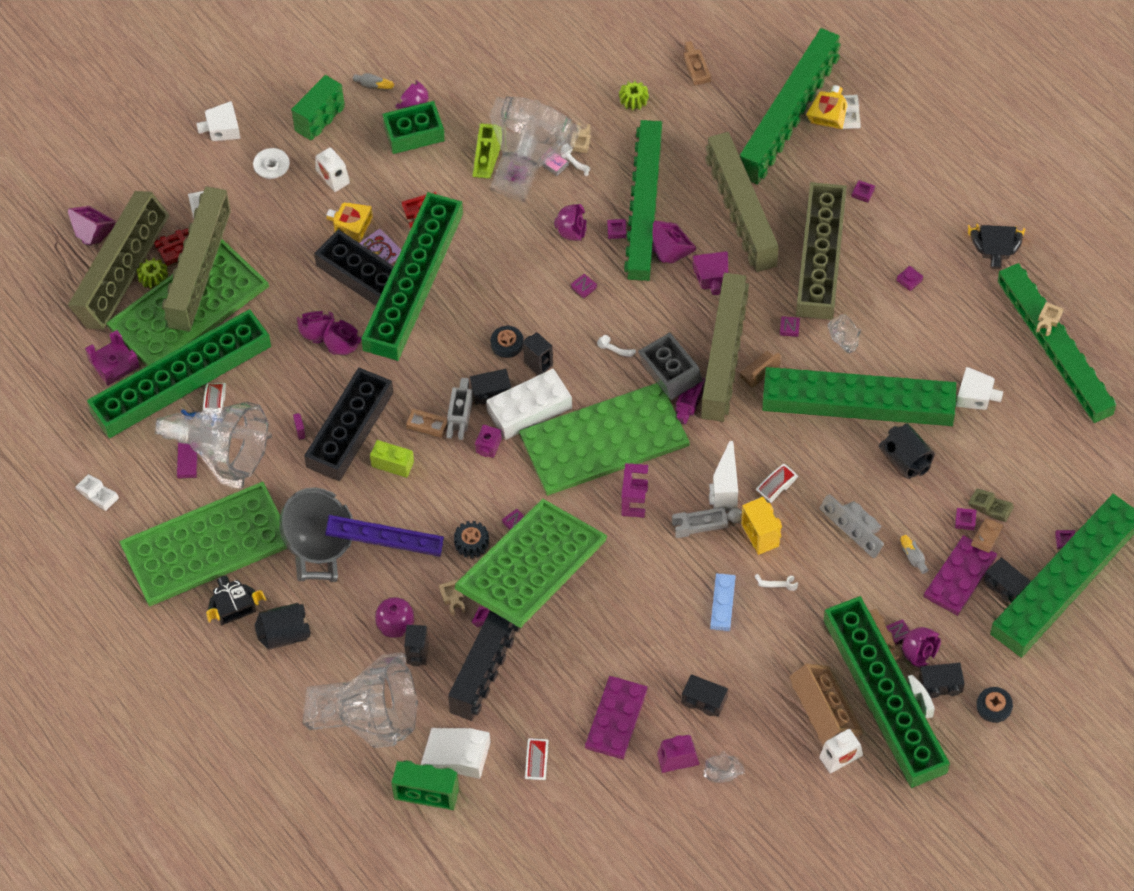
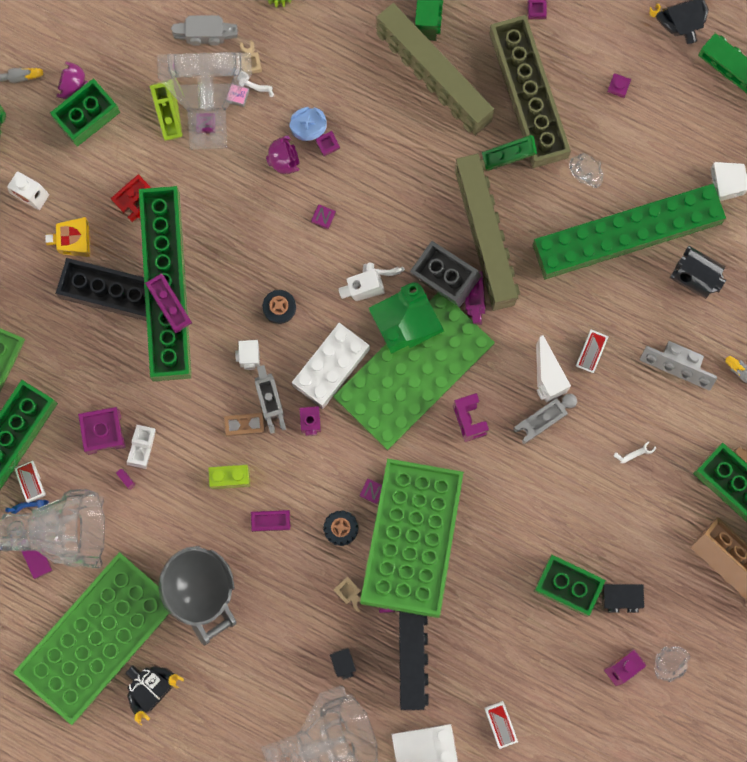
camera: 25 degrees left, 20 degrees up
(282, 626) = (210, 697): black cylinder -> none
(298, 377) = (101, 430): none -> magenta panel
(314, 324) = (92, 366): magenta cylinder -> none
(324, 407) = (141, 446): none -> white slope
(342, 339) = (123, 370): magenta cylinder -> none
(348, 424) = (172, 458): black brick -> none
(382, 246) = (112, 254): lavender tile -> none
(384, 535) = (260, 562): dark purple tile -> none
(394, 616) = (306, 638): magenta cylinder -> none
(407, 286) = (168, 303): none -> magenta tile
(411, 511) = (270, 520): none -> magenta tile
(459, 367) = (248, 354): none -> white brick
(489, 385) = (286, 362): black brick -> none
(538, 353) = (316, 311): black brick -> none
(554, 98) = (204, 30): none -> light grey hinge
(591, 350) = (370, 284): none -> white torso
(607, 206) = (308, 123): none -> light blue tile
(616, 717) = (552, 650): magenta plate -> none
(617, 389) = (406, 318): none -> green slope
(644, 200) = (340, 101): green brick -> none
(657, 664) = (569, 585): none -> green brick
(670, 242) = (385, 138): magenta slope -> none
(710, 270) = (437, 153): magenta torso -> none
(722, 602) = (595, 493): light blue plate -> none
(755, 372) = (524, 237): medium nougat panel -> none
(761, 525) = (601, 405): yellow brick -> none
(778, 291) = (509, 152): none -> green tile
(789, 326) = (532, 181): magenta tile -> none

